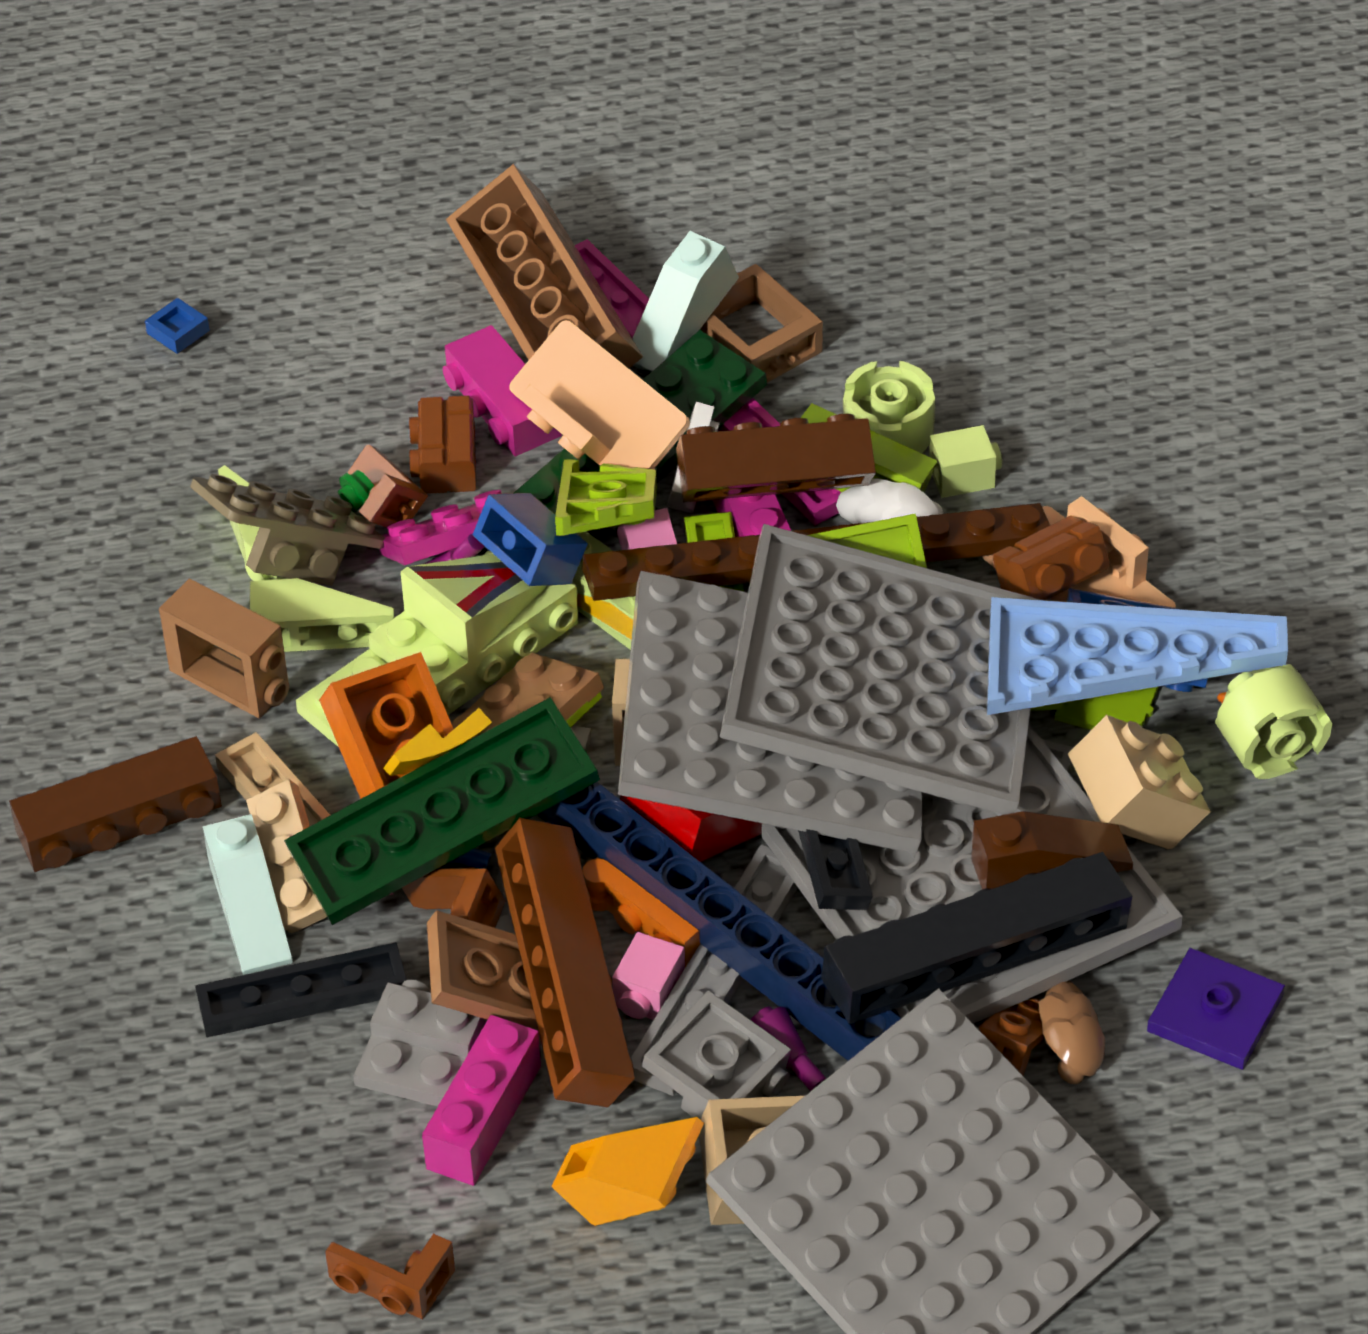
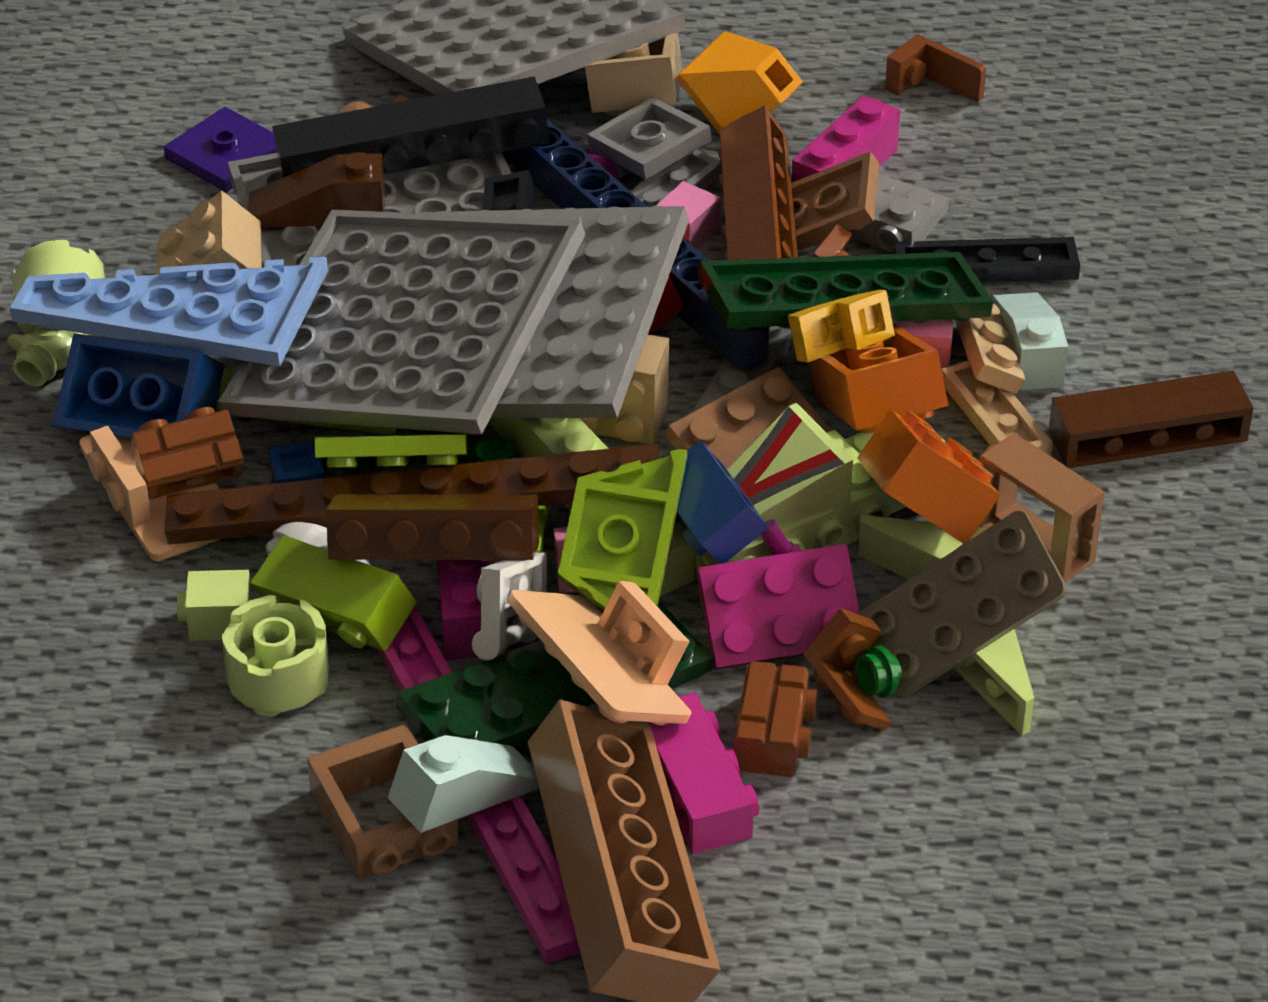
camera: 170 degrees left, 5 degrees down
(177, 325) = (1073, 935): blue plate -> none
(328, 586) = (929, 475): none -> orange brick

